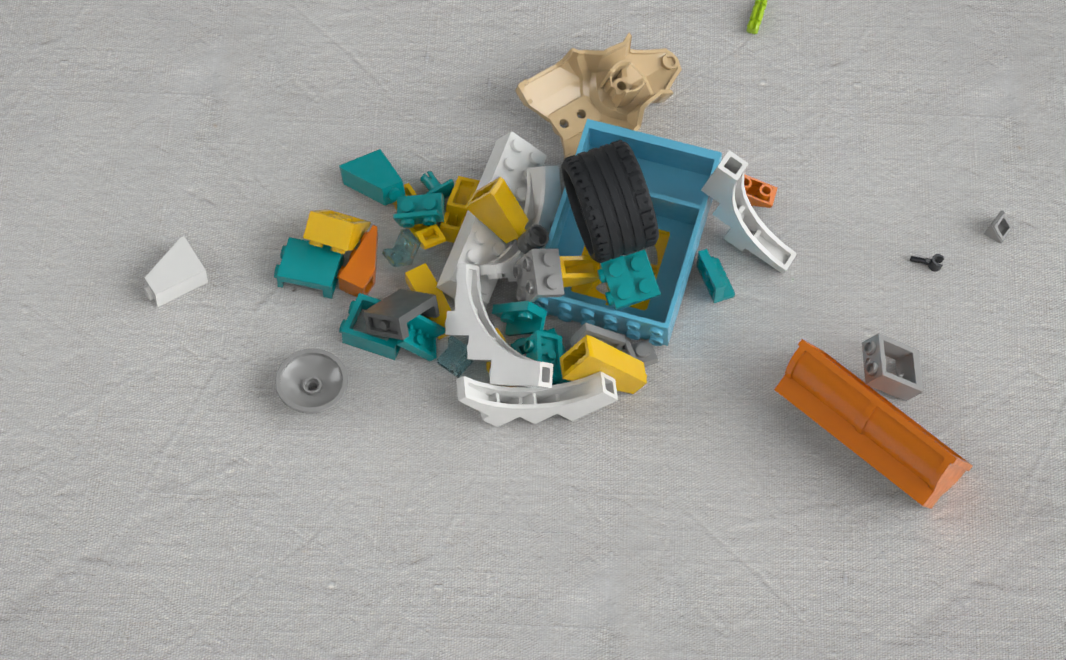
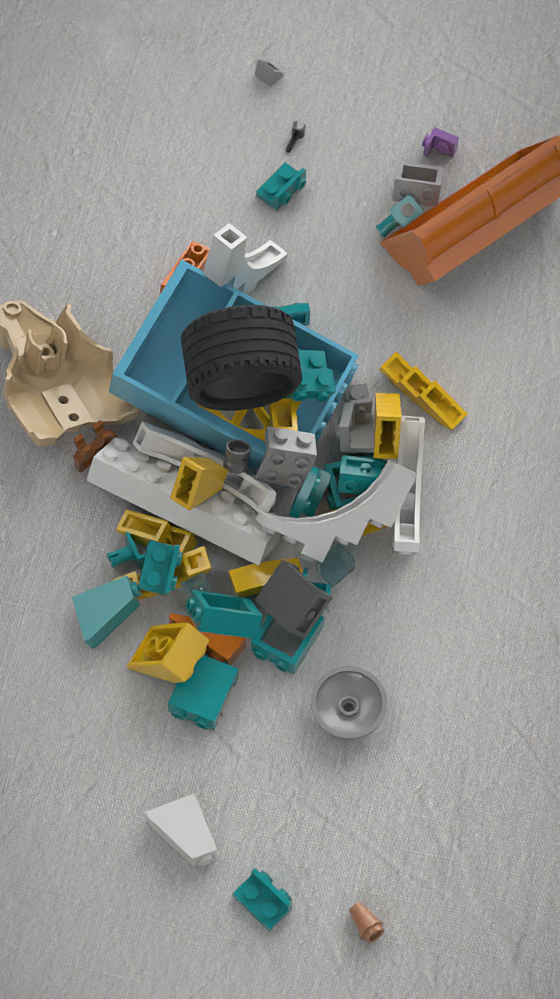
camera: 80 degrees left, 5 degrees up
(104, 427) = (366, 922): none -> nougat cone
(118, 345) = (263, 899): none -> teal bracket
(366, 264) = (224, 614): none -> teal window
(544, 145) = (85, 453): none -> dark orange plate
(660, 409) = (423, 392): none -> yellow slope
(849, 356) = (397, 217): none -> teal bracket
(865, 257) = (281, 186): none -> teal bracket
(957, 383) = (441, 141): none -> medium lavender bracket

